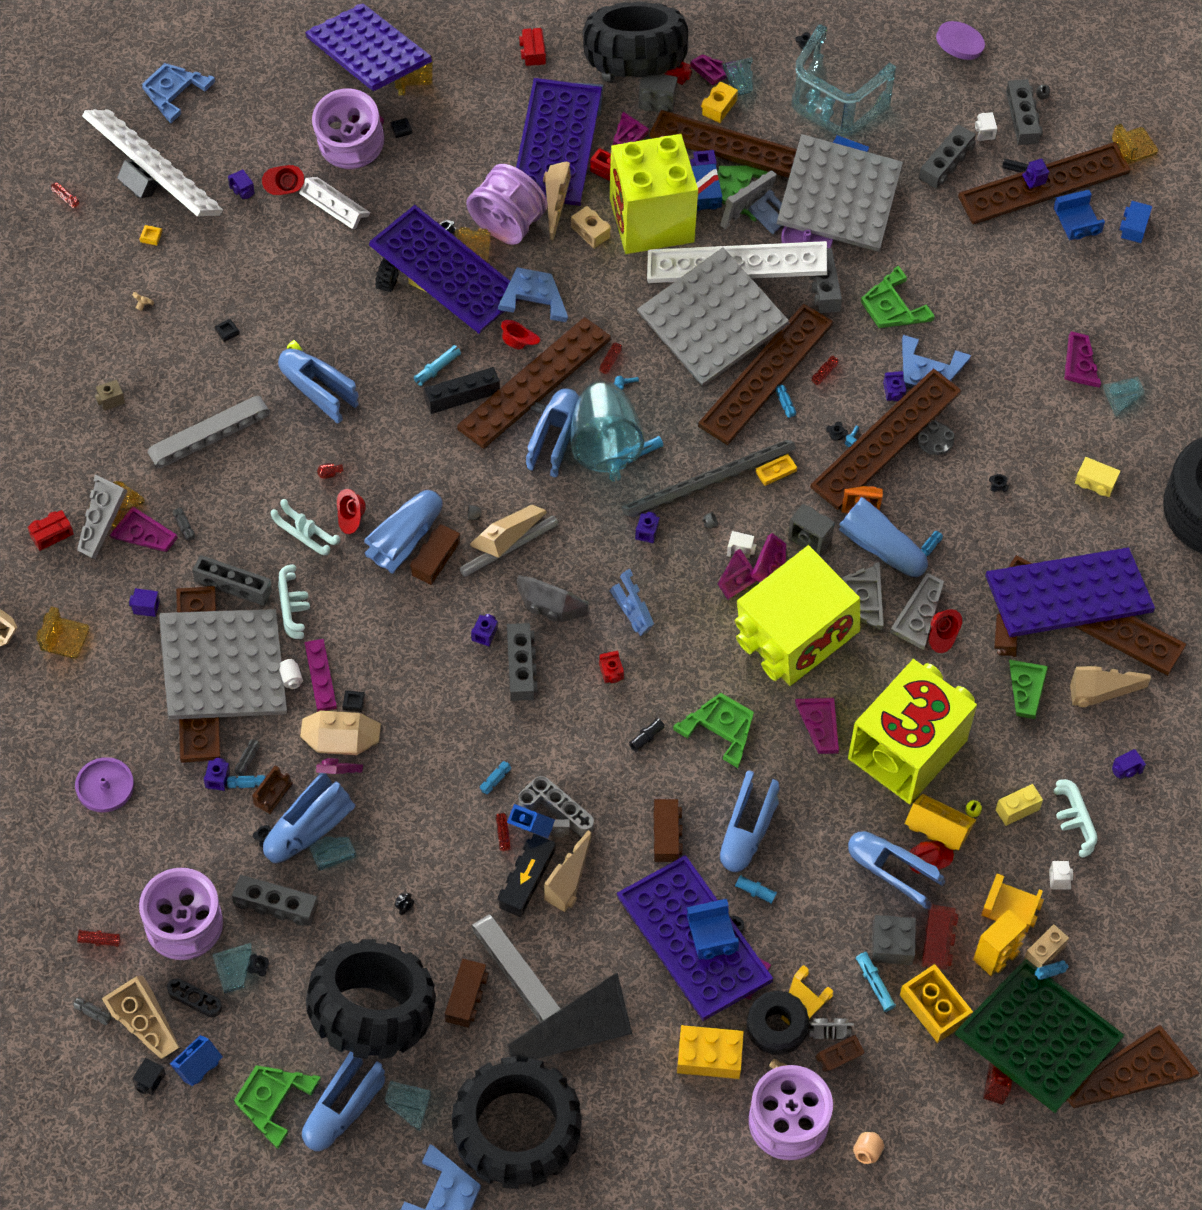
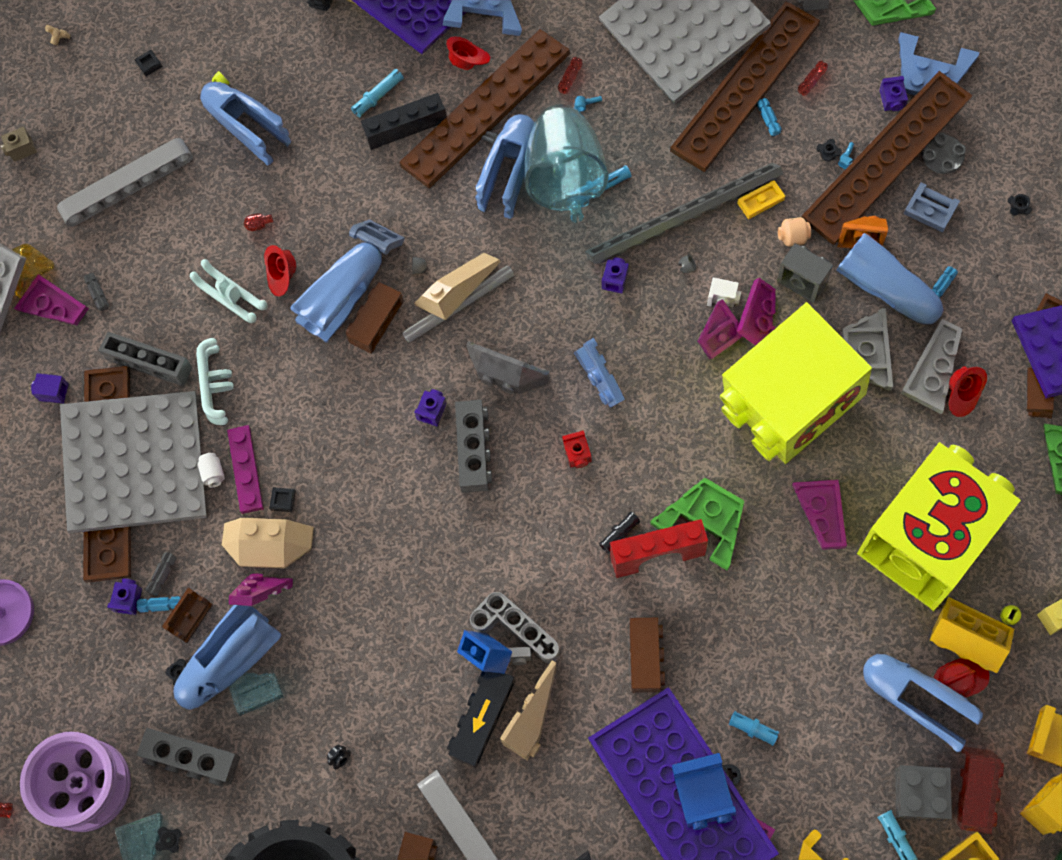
camera: 10 degrees right, 10 degrees up
(438, 485) = (376, 235): none -> sand blue plate
(495, 777) = (444, 591): dark azure axle -> none
(503, 833) = (453, 660): clear red axle -> none
(656, 744) = (631, 552): none -> red arch
(738, 843) = (731, 676): medium blue piece -> none
(804, 495) = (794, 231): none -> light nougat head
(920, 485) = (928, 211): none -> sand blue plate

